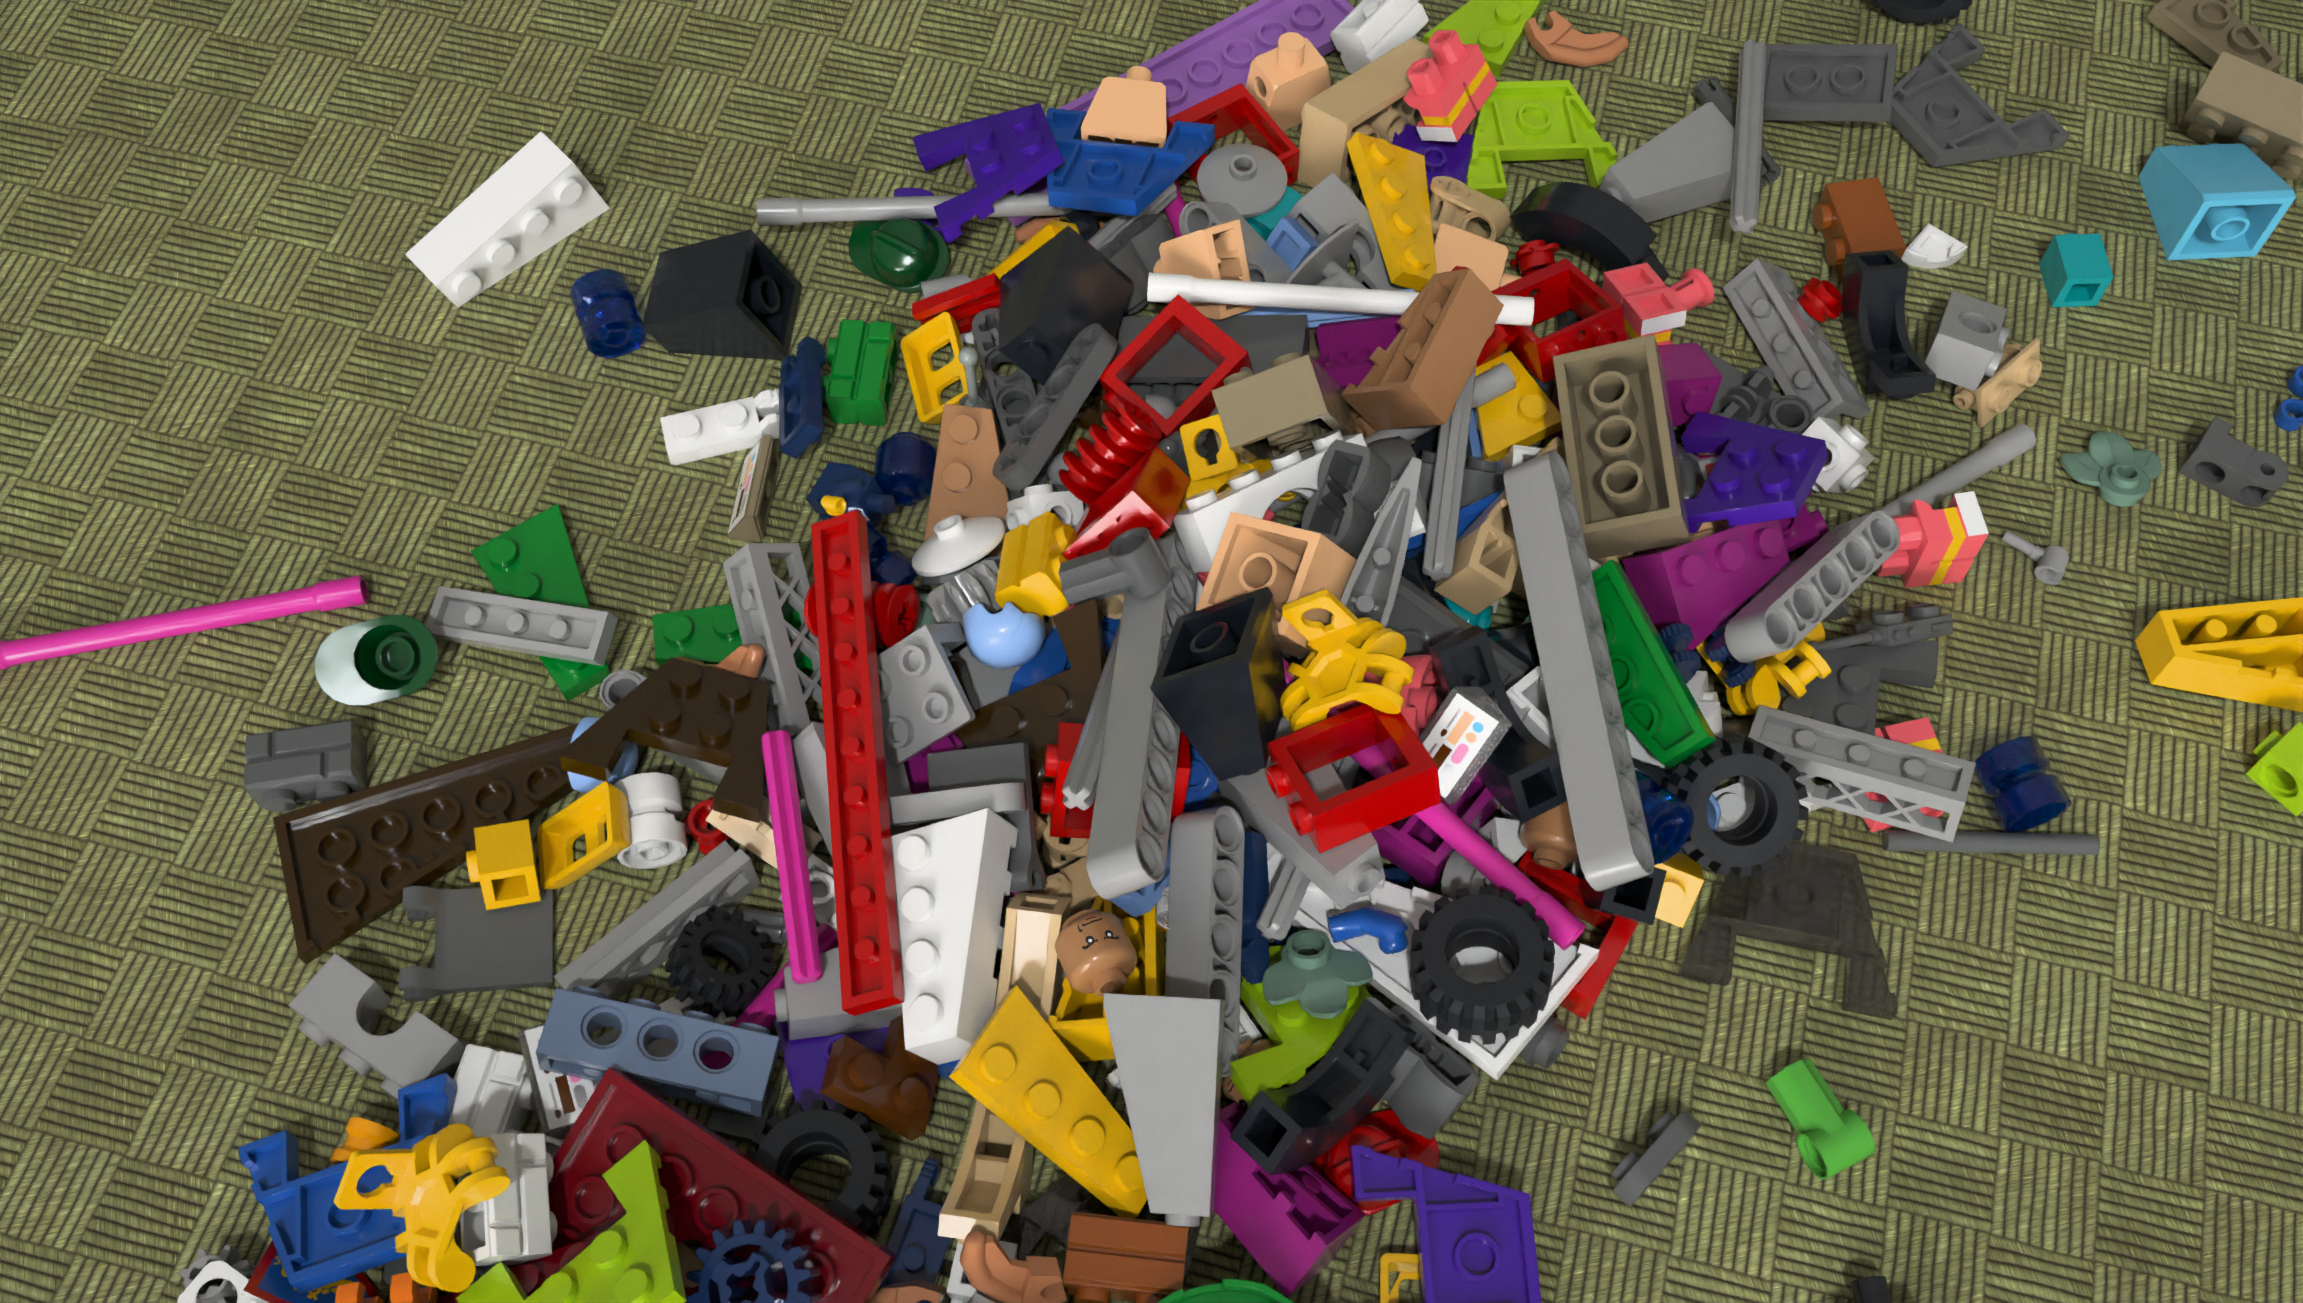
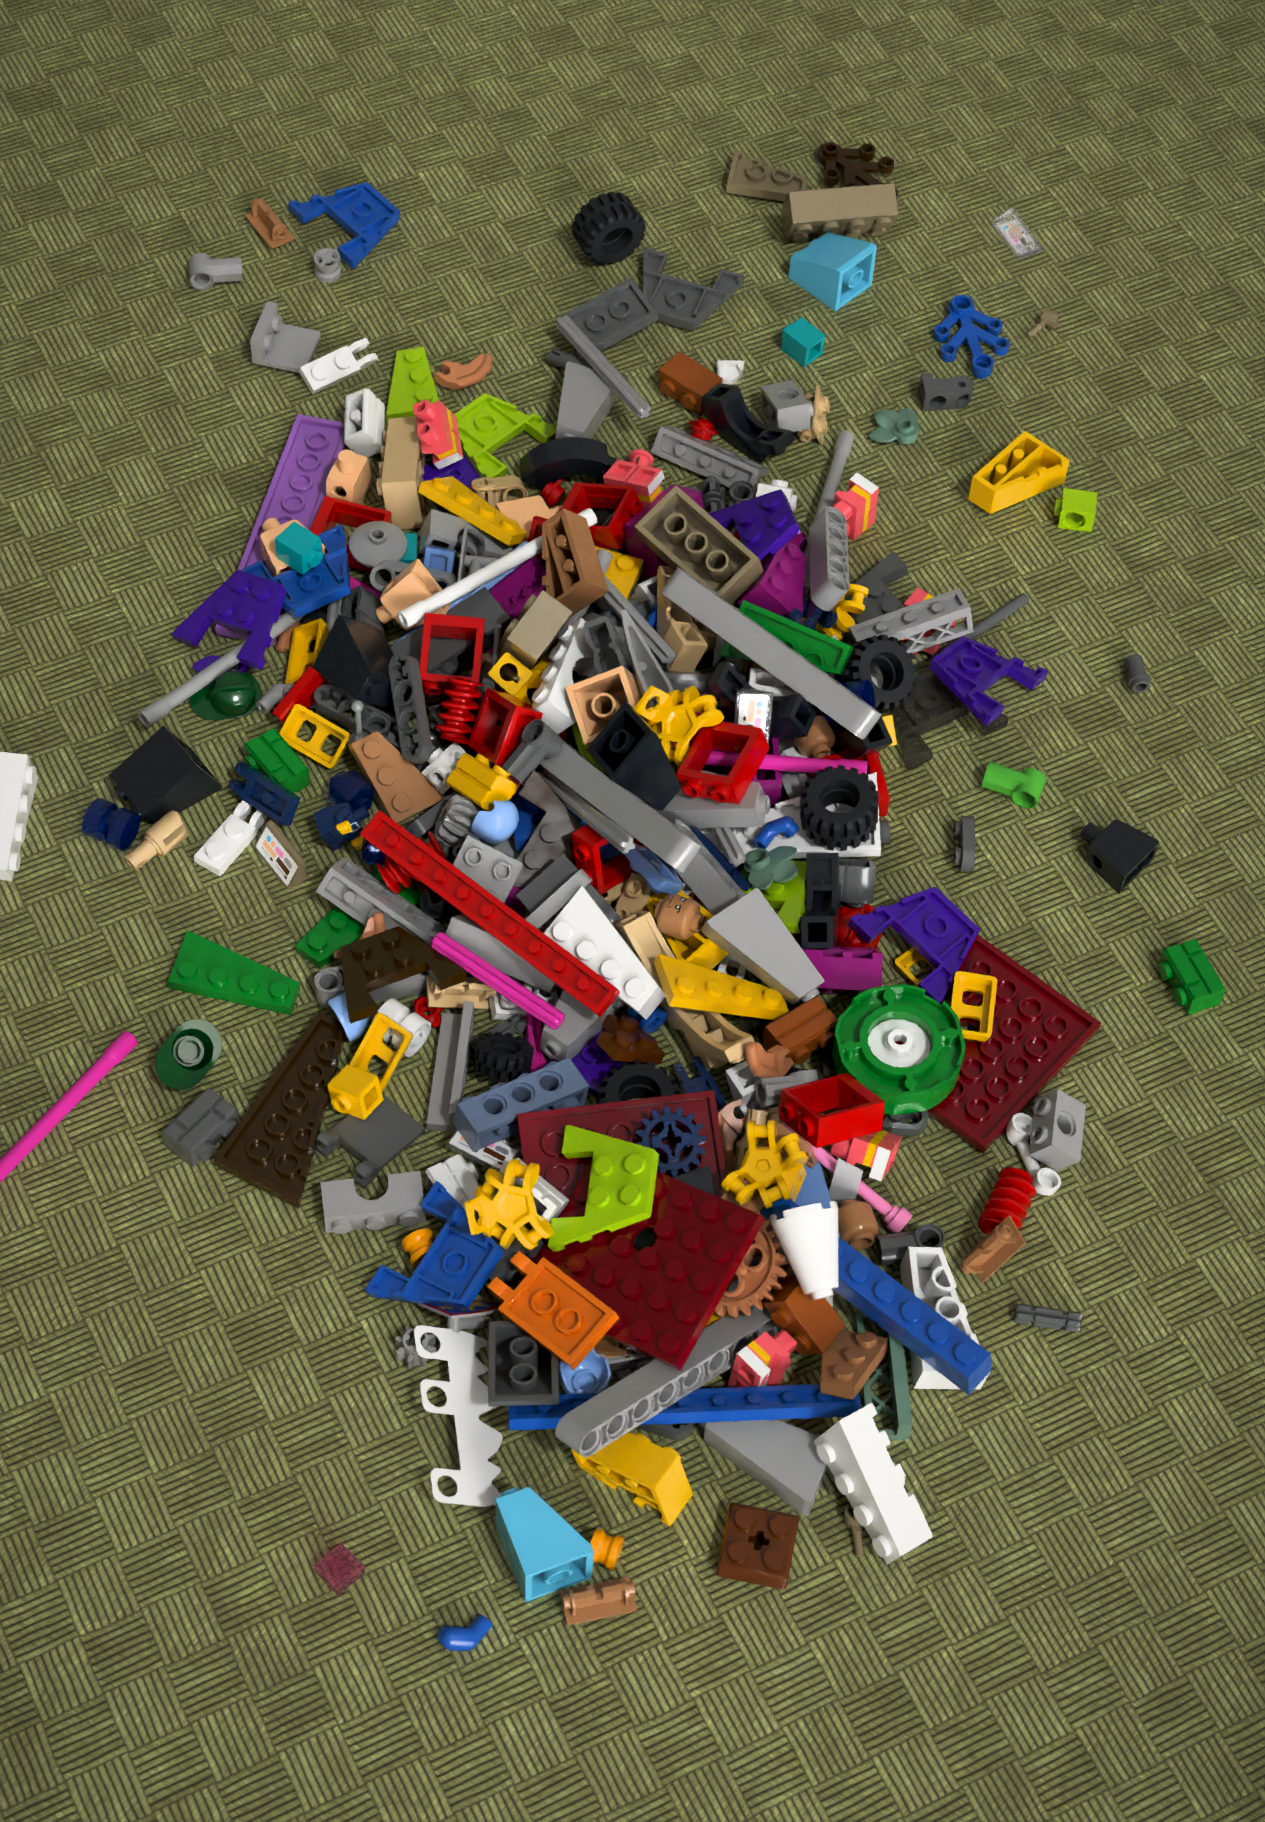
camera: 45 degrees left, 5 degrees down
(522, 625) = (243, 988): light grey plate -> none
(640, 371) = (158, 840): none -> tan arm
(957, 544) = (425, 804): white dish -> none
(1121, 117) = (299, 548): none -> teal brick
(1894, 628) = (871, 557): dark grey piece -> none
(1910, 894) = (973, 667): none -> dark purple wing
(2022, 787) = (987, 592): clear blue wheel -> none
(2050, 560) = (905, 486): light grey hand -> none
(2174, 1099) = (1138, 679): none -> dark grey pin

